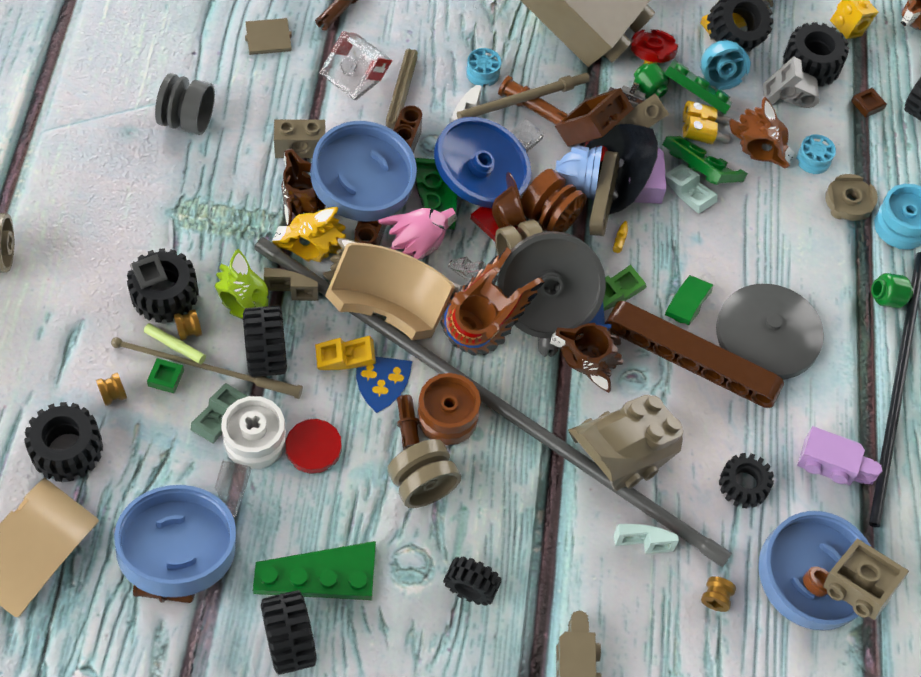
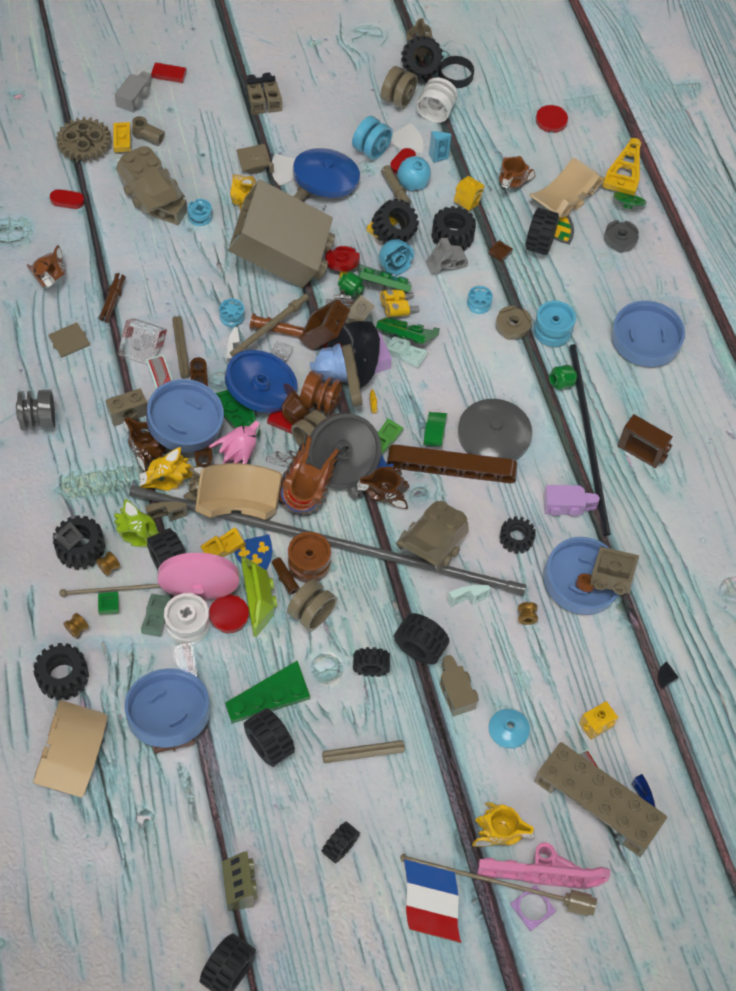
camera: 20 degrees left, 0 degrees up
(174, 343) = (104, 579): yellowish green piece -> none
(288, 379) = (198, 574): none -> bright pink dish
(360, 104) = (159, 370): none -> slope
(361, 436) = (259, 595): none -> lime wedge
(553, 574) = (421, 638): none -> black tyre
(765, 128) = (440, 293): dark orange piece -> none

